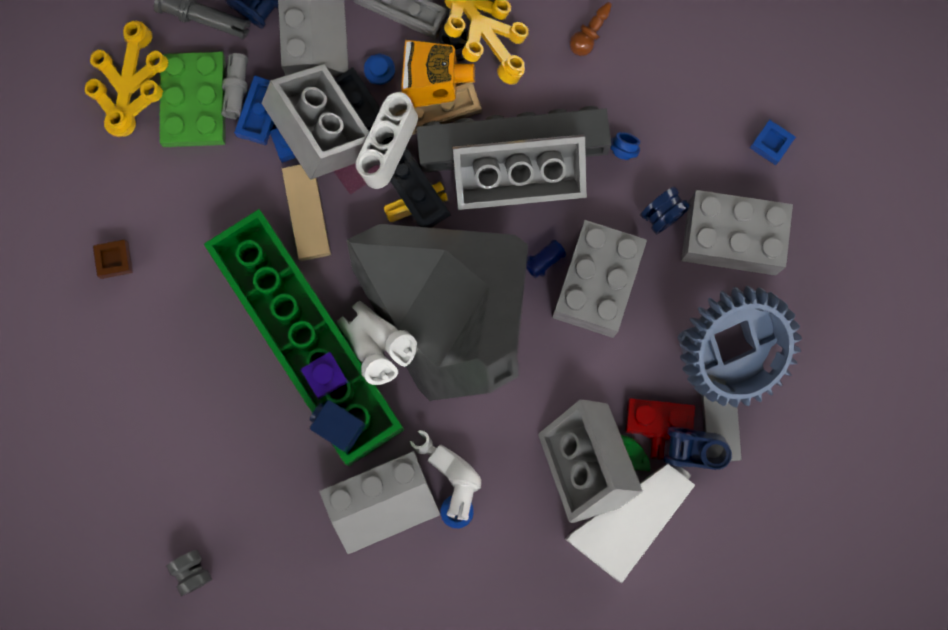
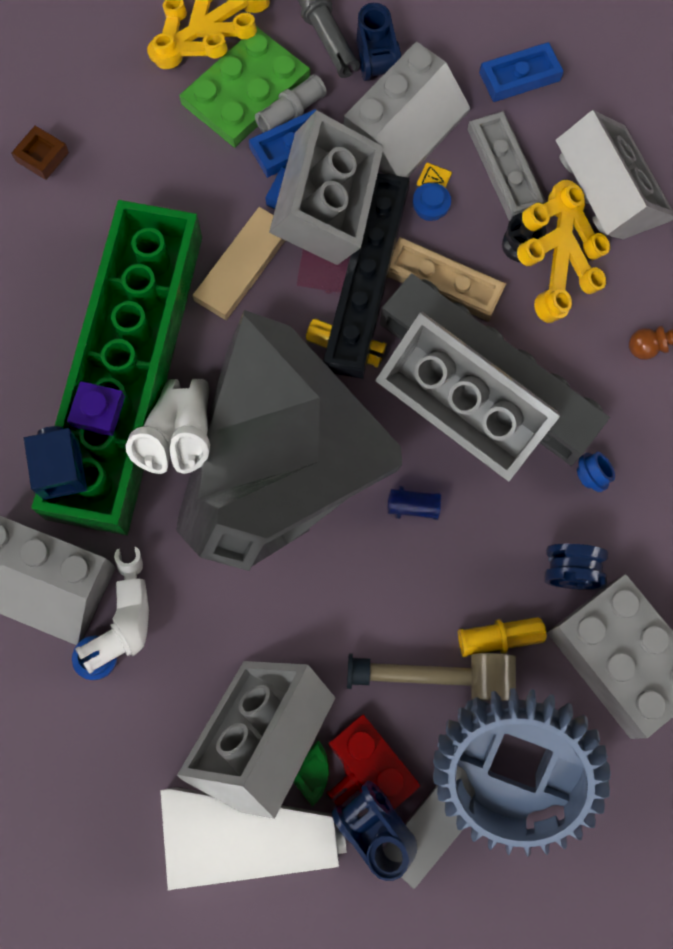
camera: 40 degrees right, 5 degrees down
(363, 51) = (434, 174): none -> yellow sticker
(386, 126) = (370, 257): white beam -> none
(433, 73) = (473, 242): light orange torso -> none
(599, 279) = (446, 569): light grey brick -> none
(660, 286) = (501, 636): none -> yellow axle
(674, 316) = (487, 674): none -> dark tan piece

